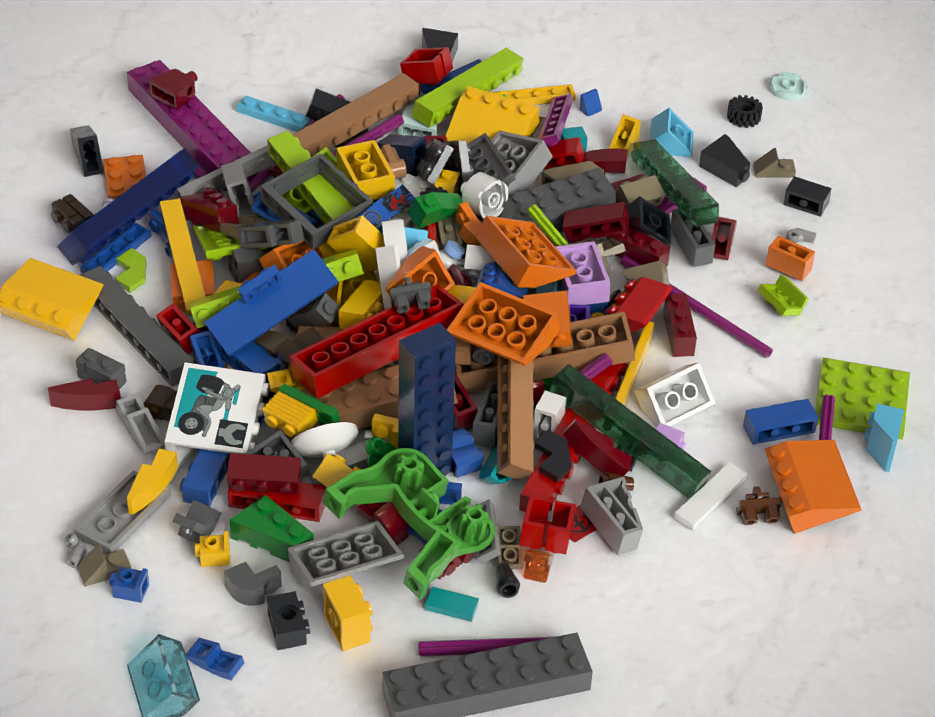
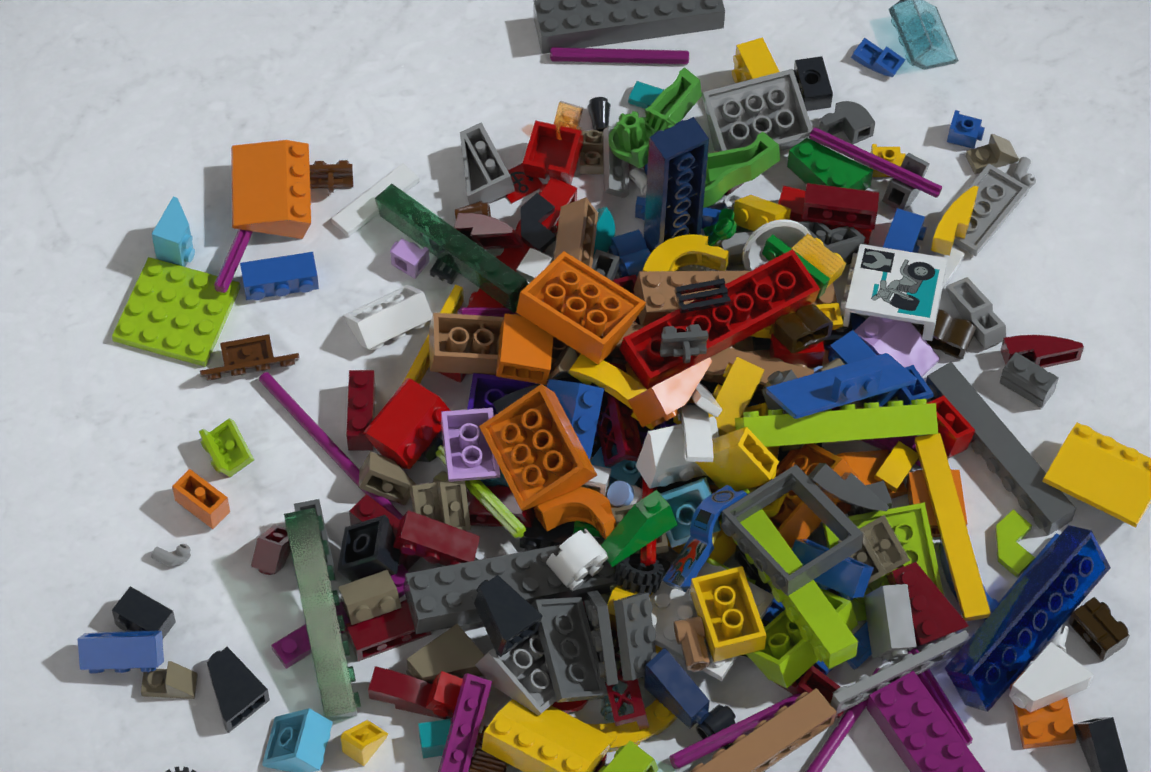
camera: 175 degrees left, 15 degrees up
(118, 173) = (1049, 679): none -> white slope
(228, 522) = (875, 162): none -> magenta axle
(395, 330) = (713, 284): none -> black tile
(533, 159) = (505, 614): none -> black slope
(785, 358) = (248, 354): none -> reddish brown bracket
(815, 167) = (120, 651): none -> blue brick

